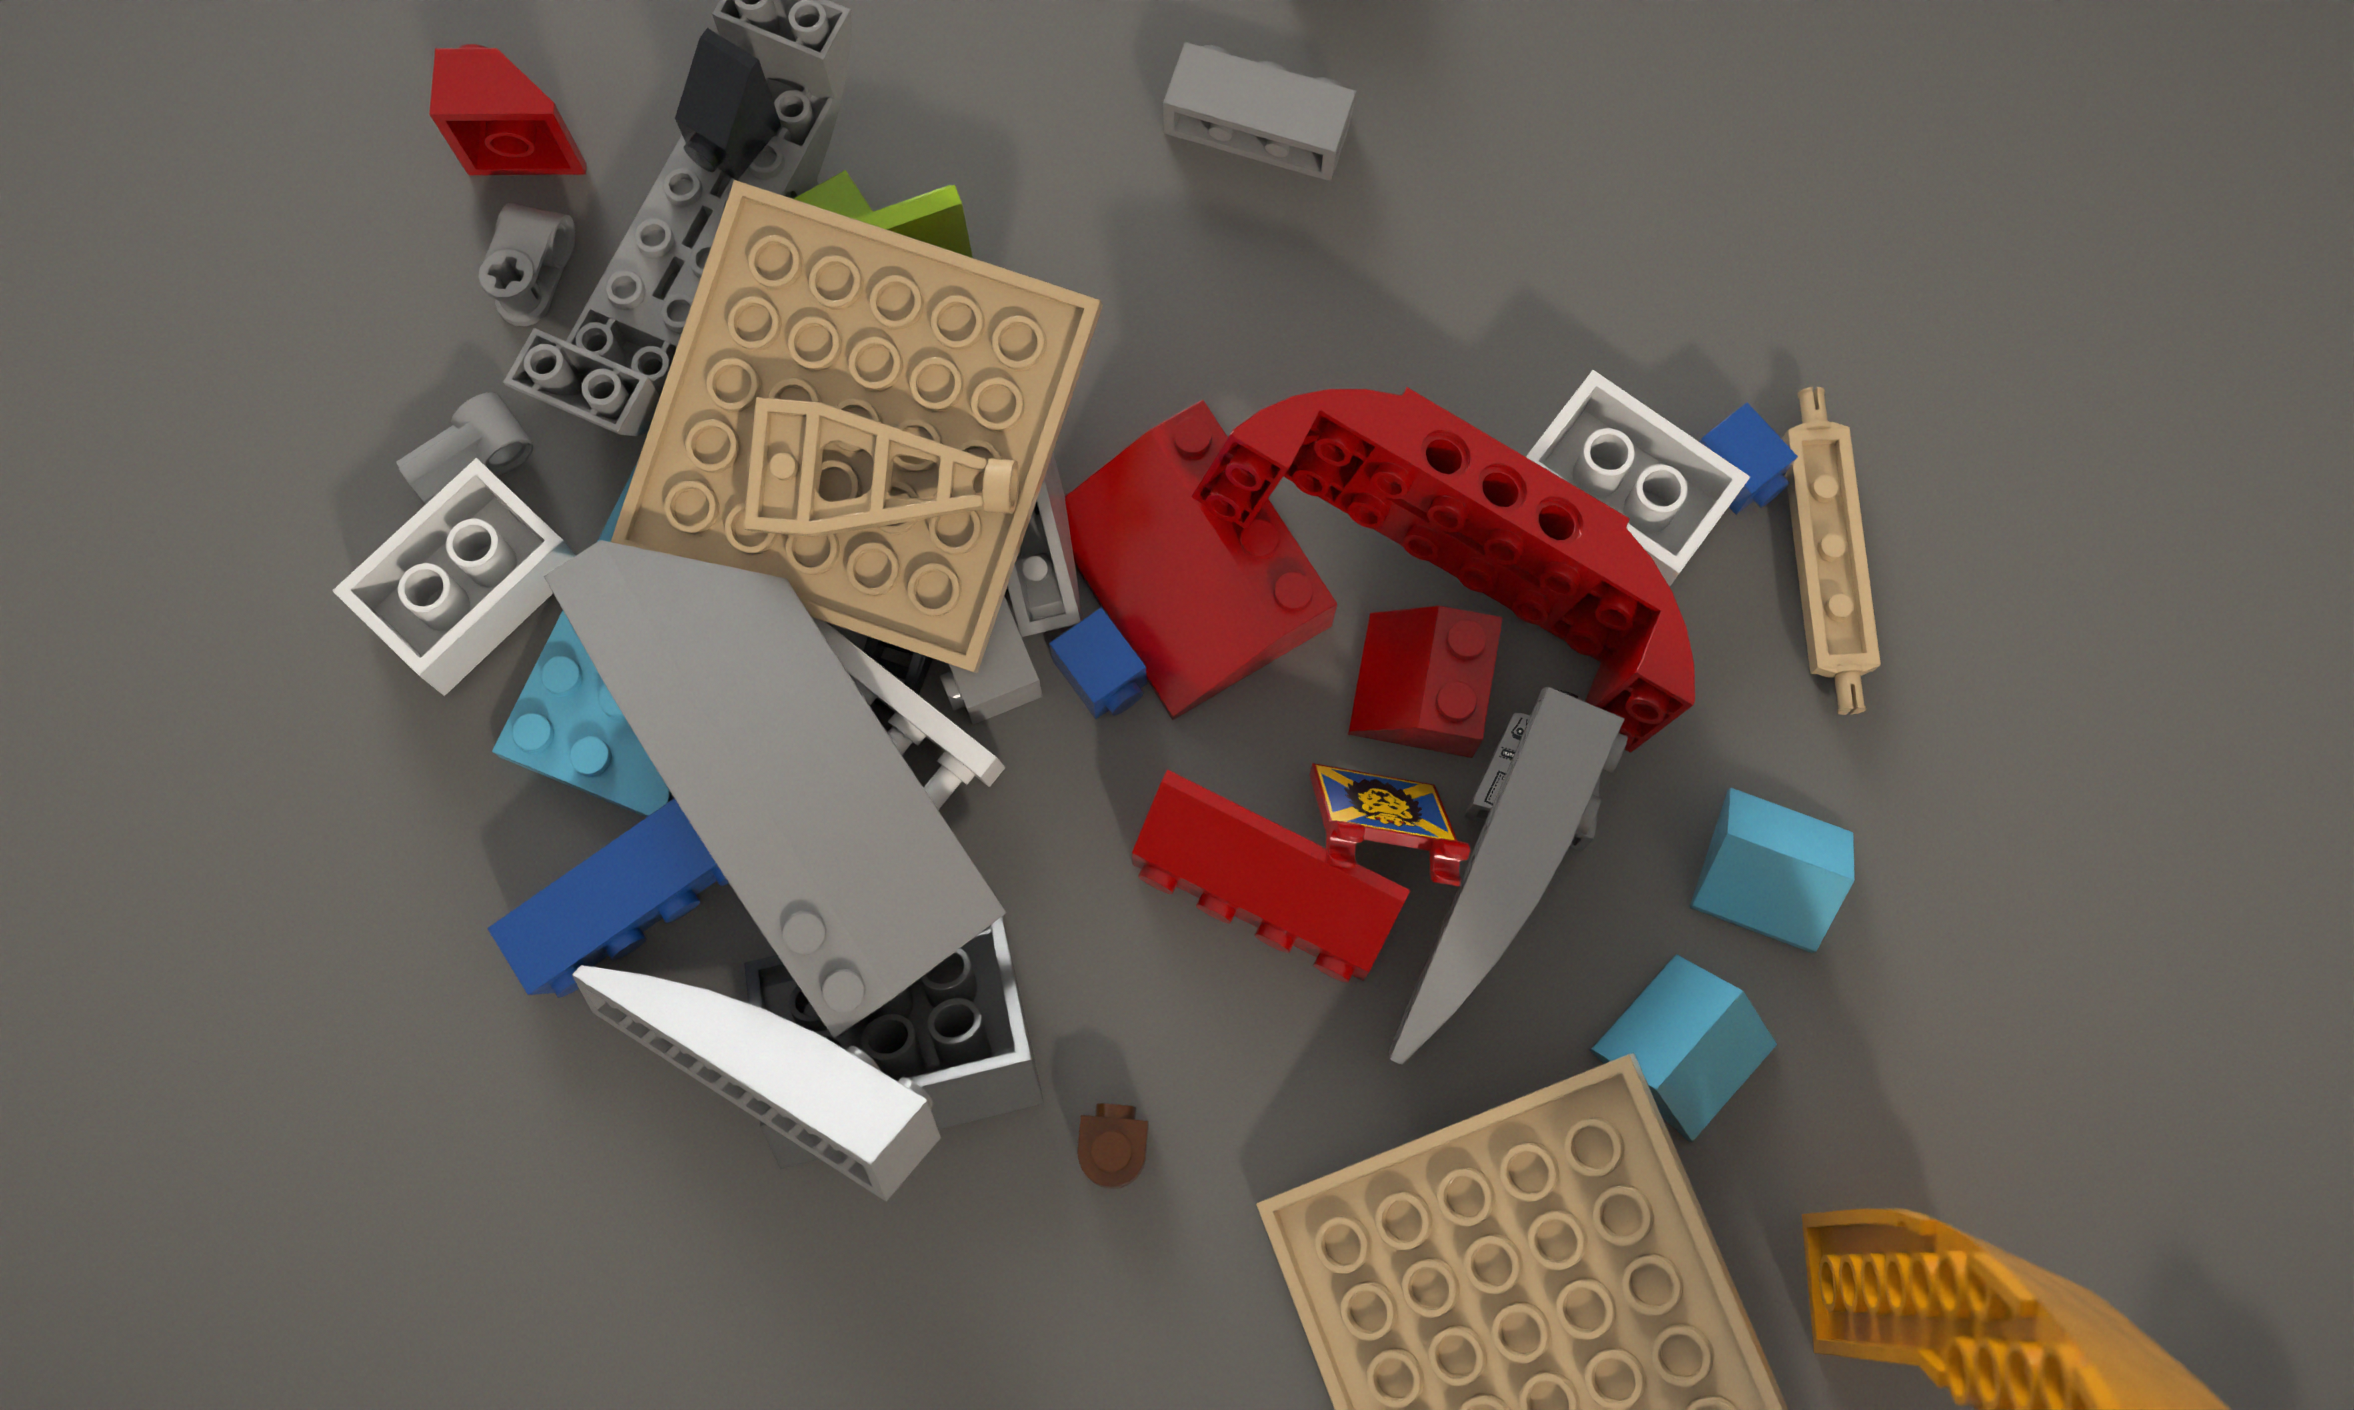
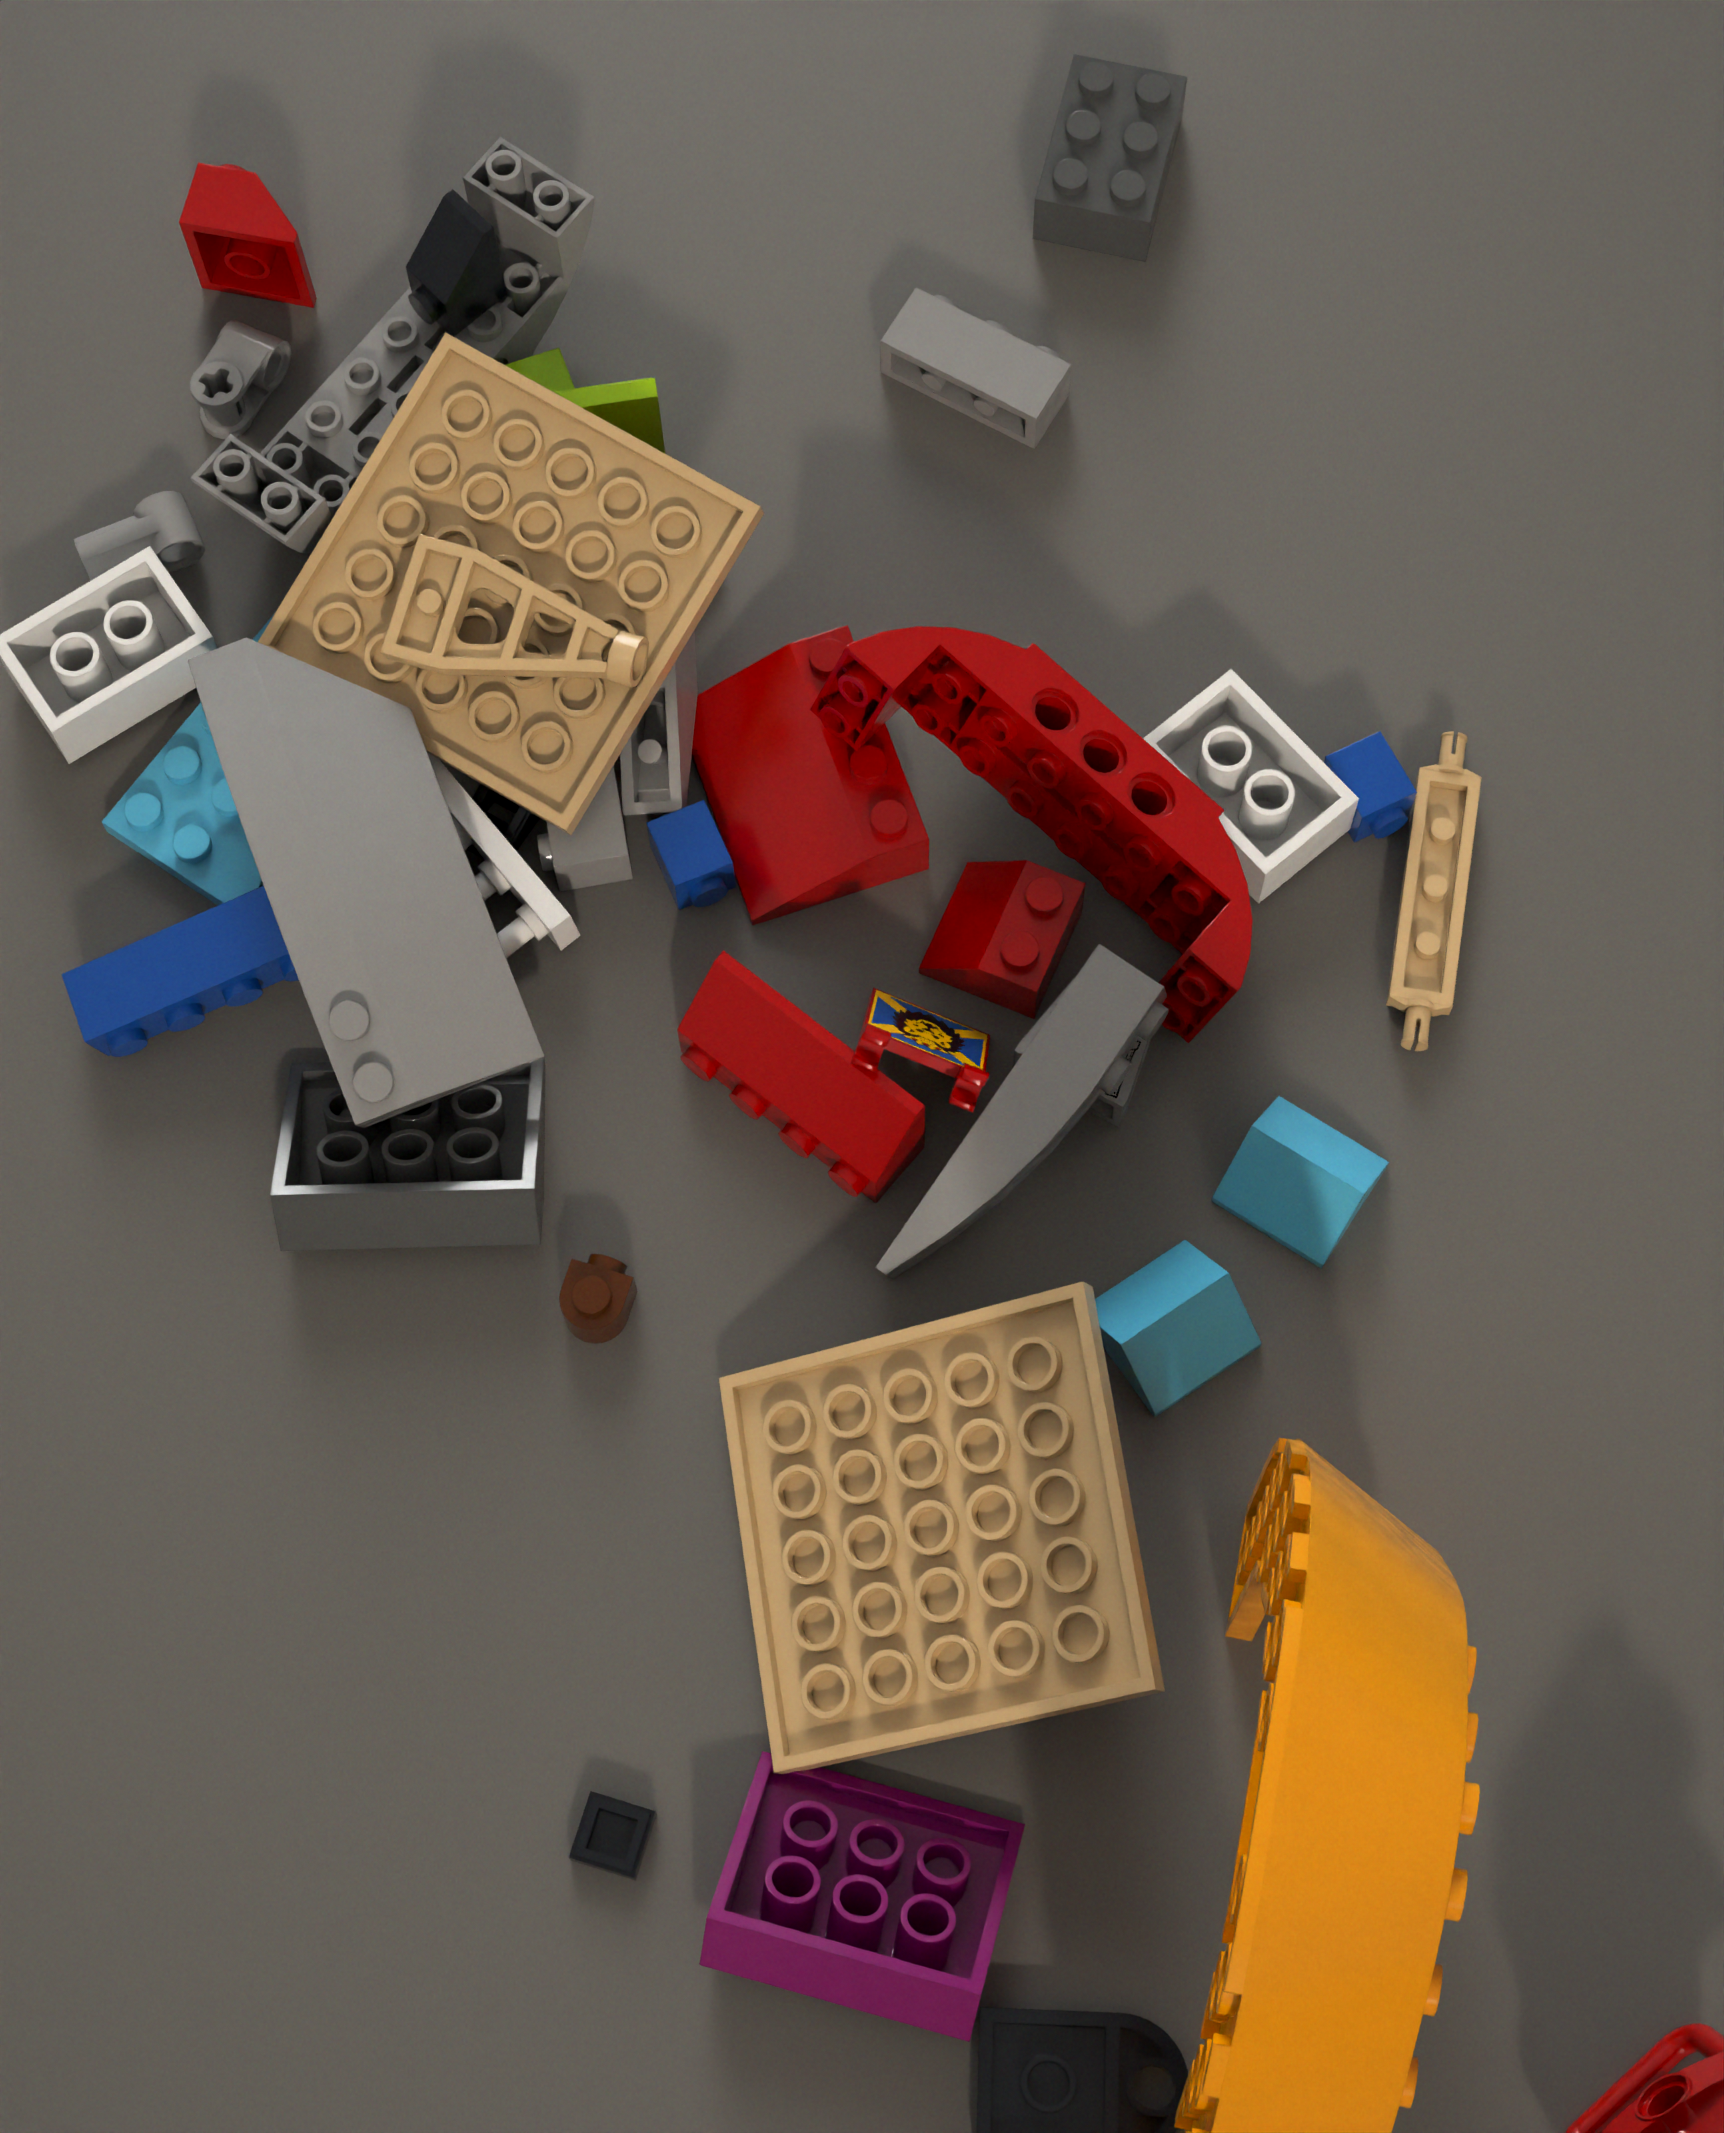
camera: 15 degrees right, 5 degrees down
(777, 1072) = (292, 1146): slope -> none

